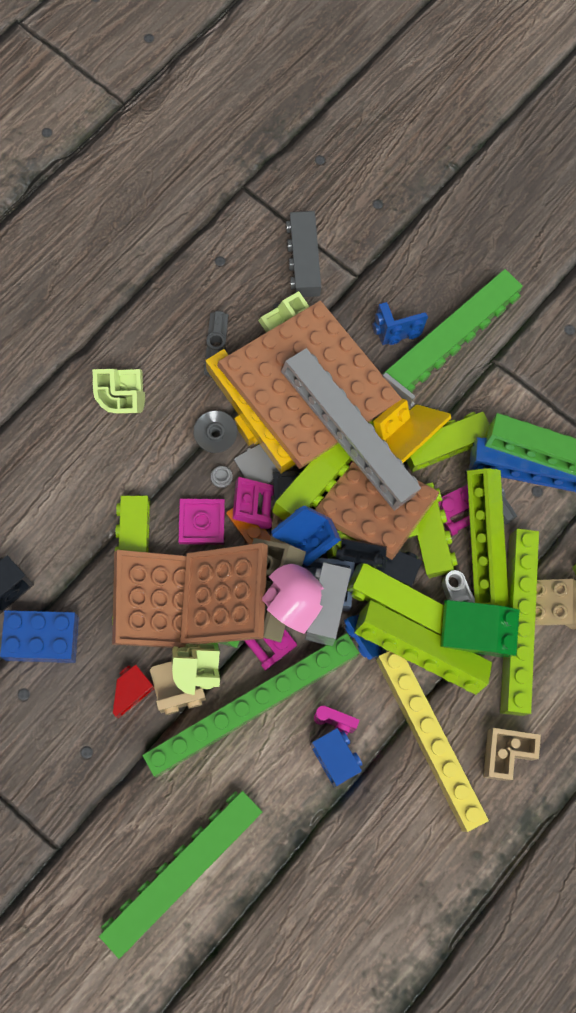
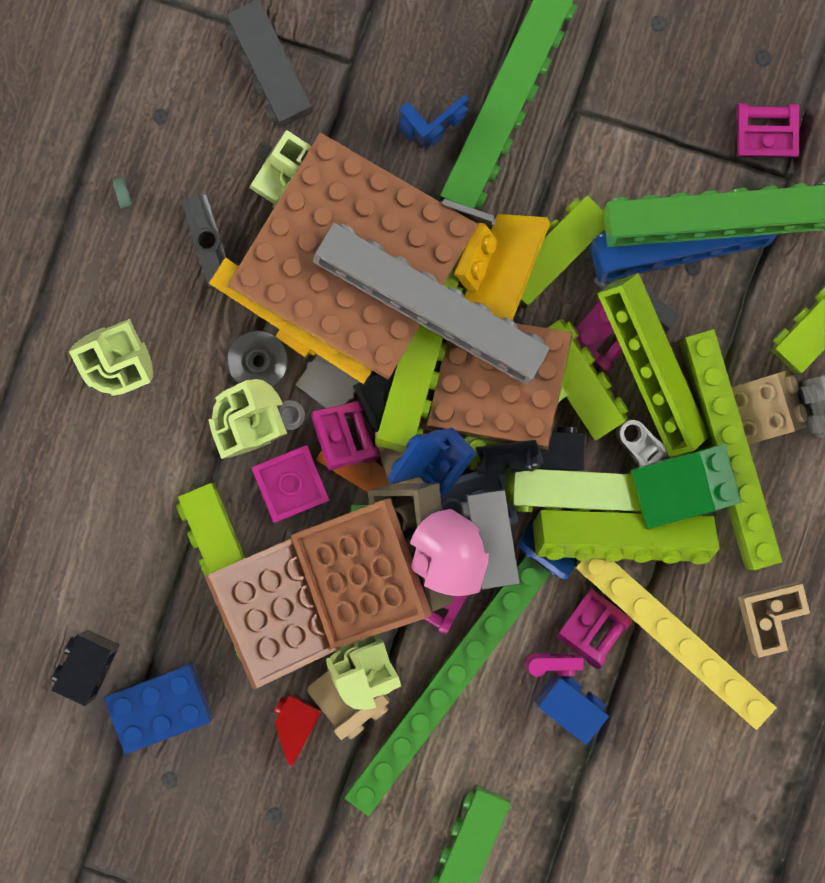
camera: 20 degrees left, 15 degrees up
(173, 296) = (122, 192): none -> sand green tile
(191, 463) = (246, 418): none -> yellowish green brick
(371, 701) = (585, 624): none -> dark pink plate

